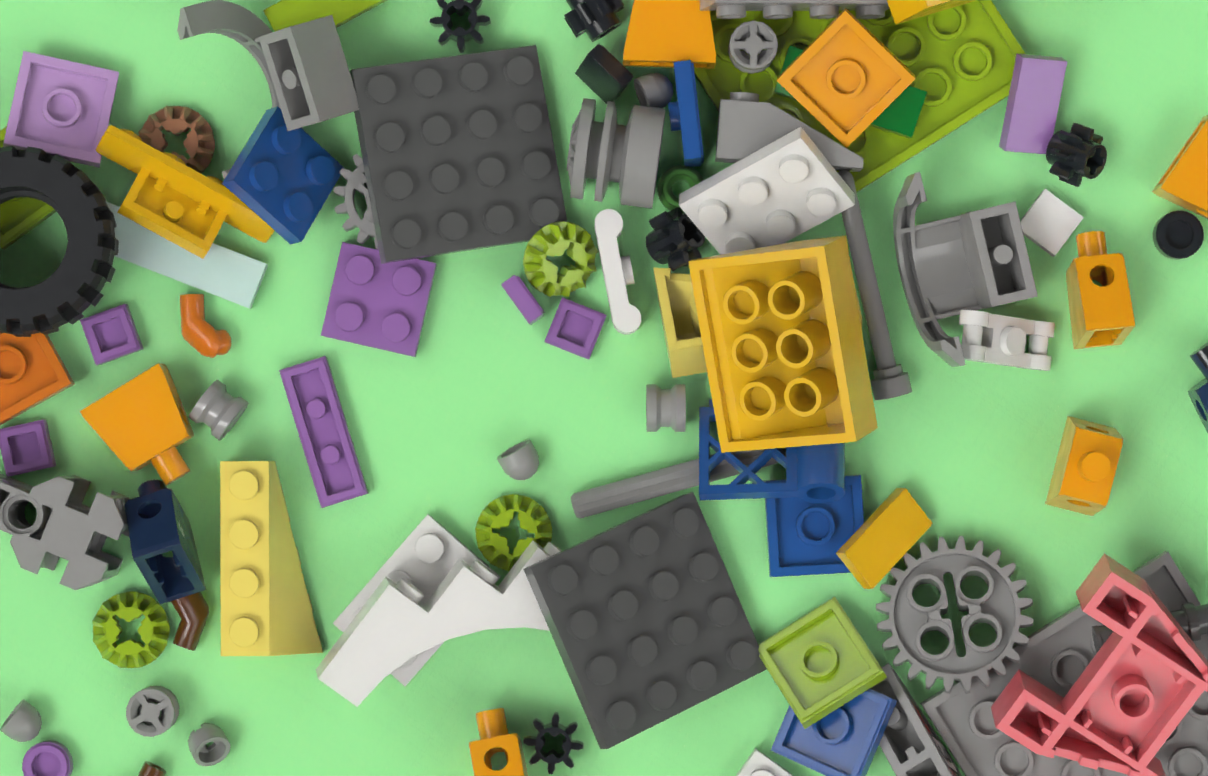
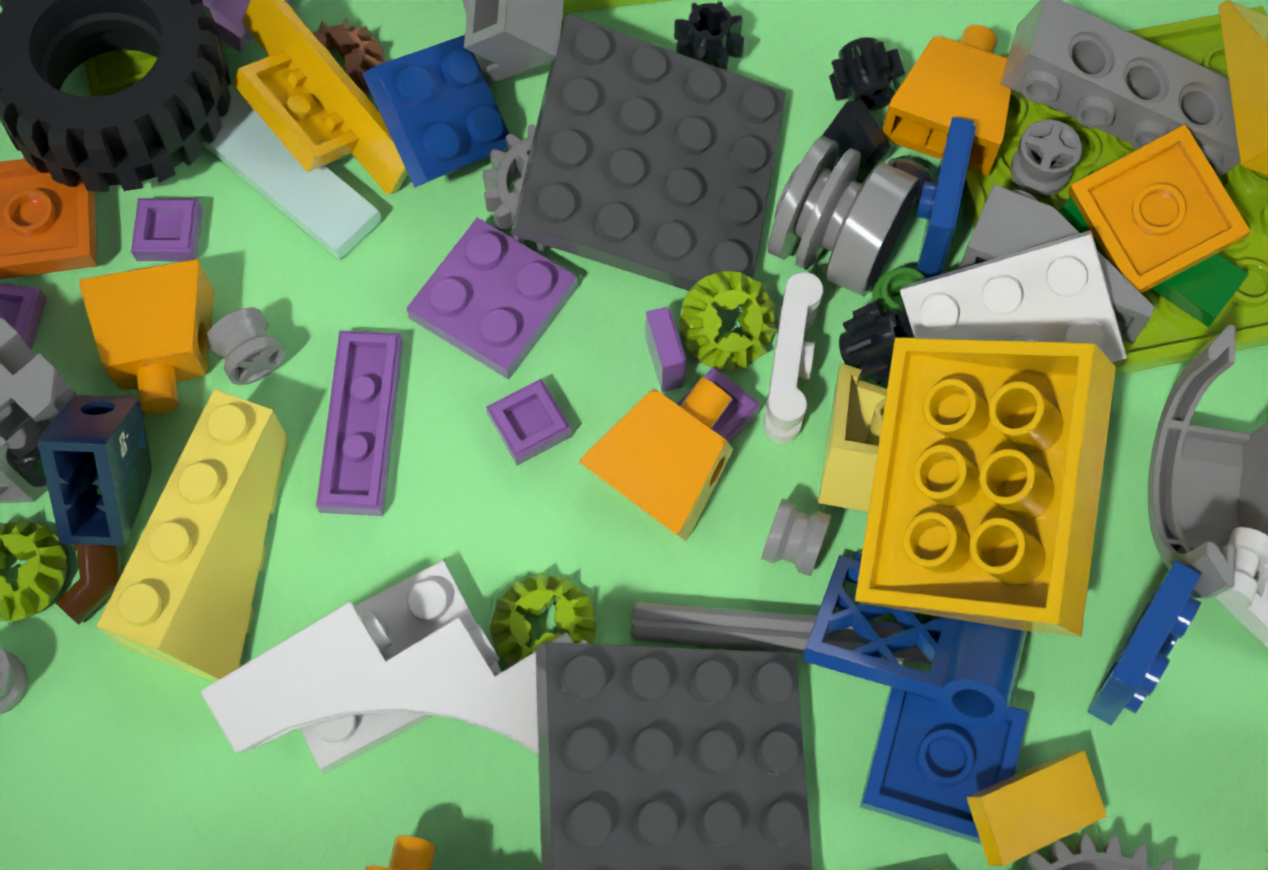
camera: 20 degrees right, 20 degrees down
(197, 331) = (266, 254): orange arm -> none
(214, 753) = (18, 750): light grey hinge -> none
(444, 387) = (529, 422): none -> medium lavender tile
(520, 460) = (586, 538): light grey hinge -> none
(555, 386) = (666, 455): none -> light orange torso
(889, 377) = (1104, 607): light grey piece -> none
(931, 387) = (1148, 645): none -> blue plate

